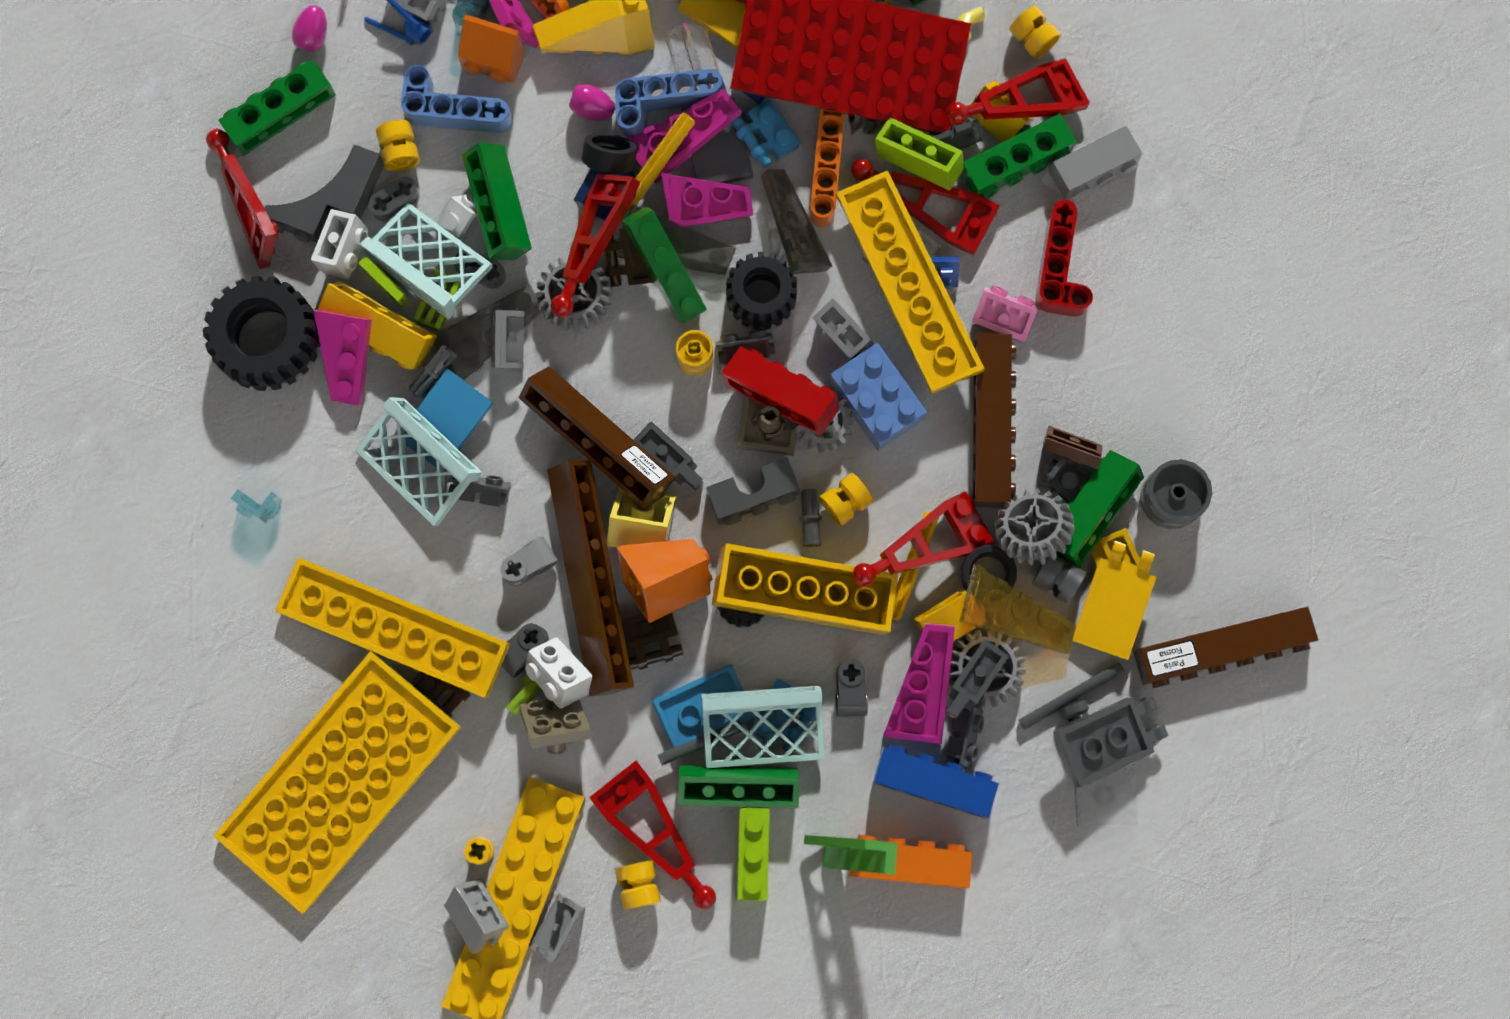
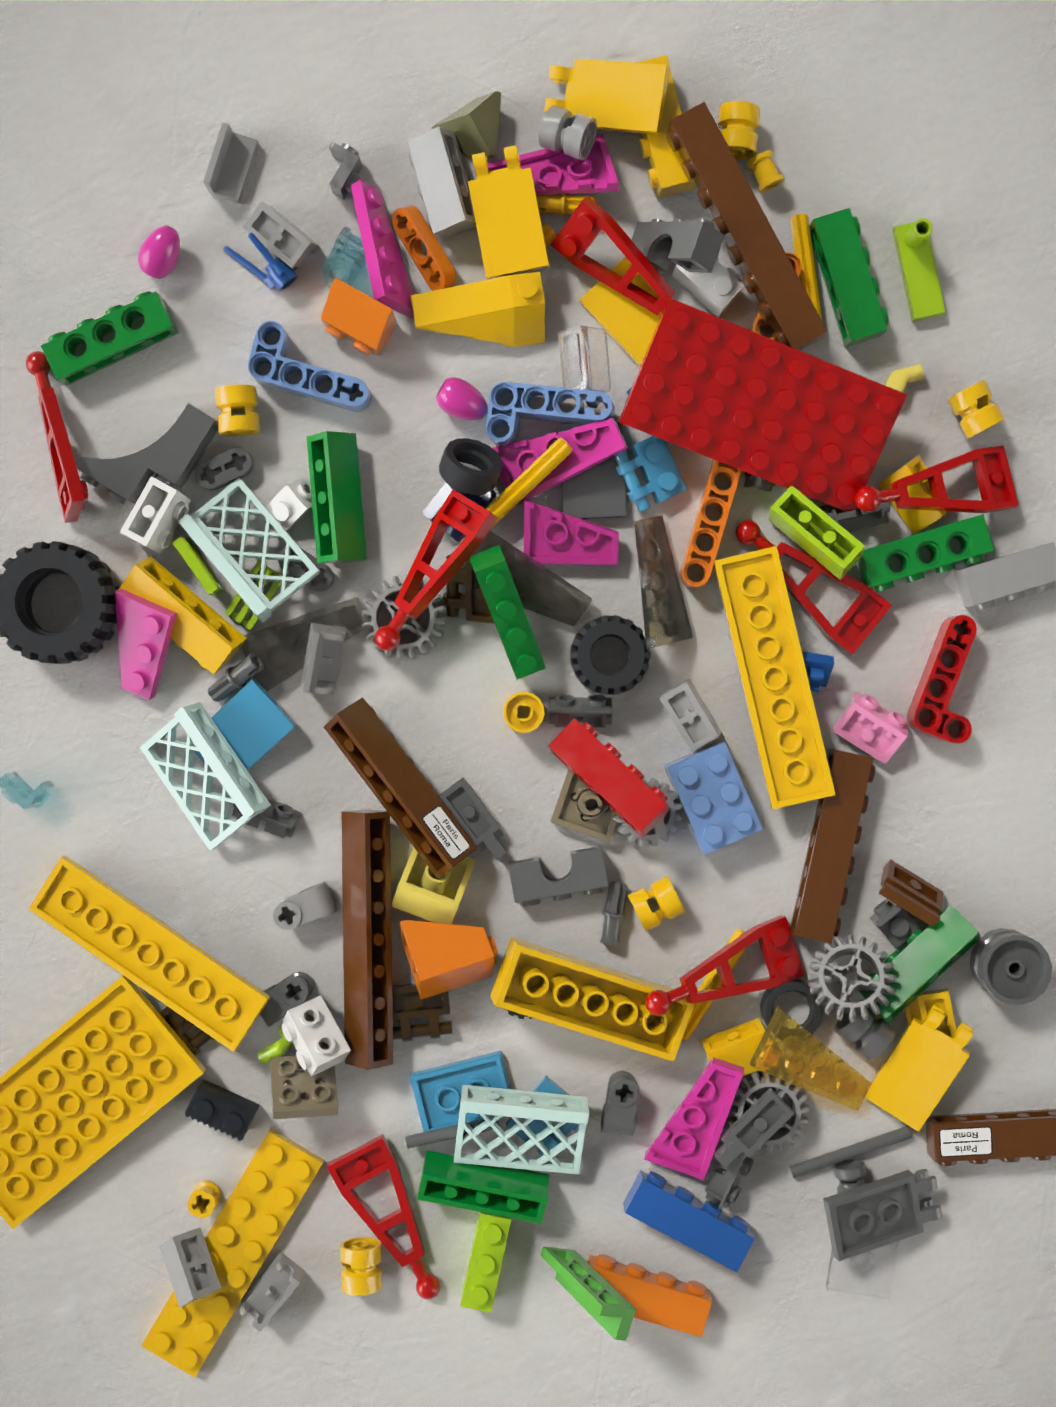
camera: 15 degrees right, 10 degrees up
(482, 762) = (222, 1109): none -> black brick

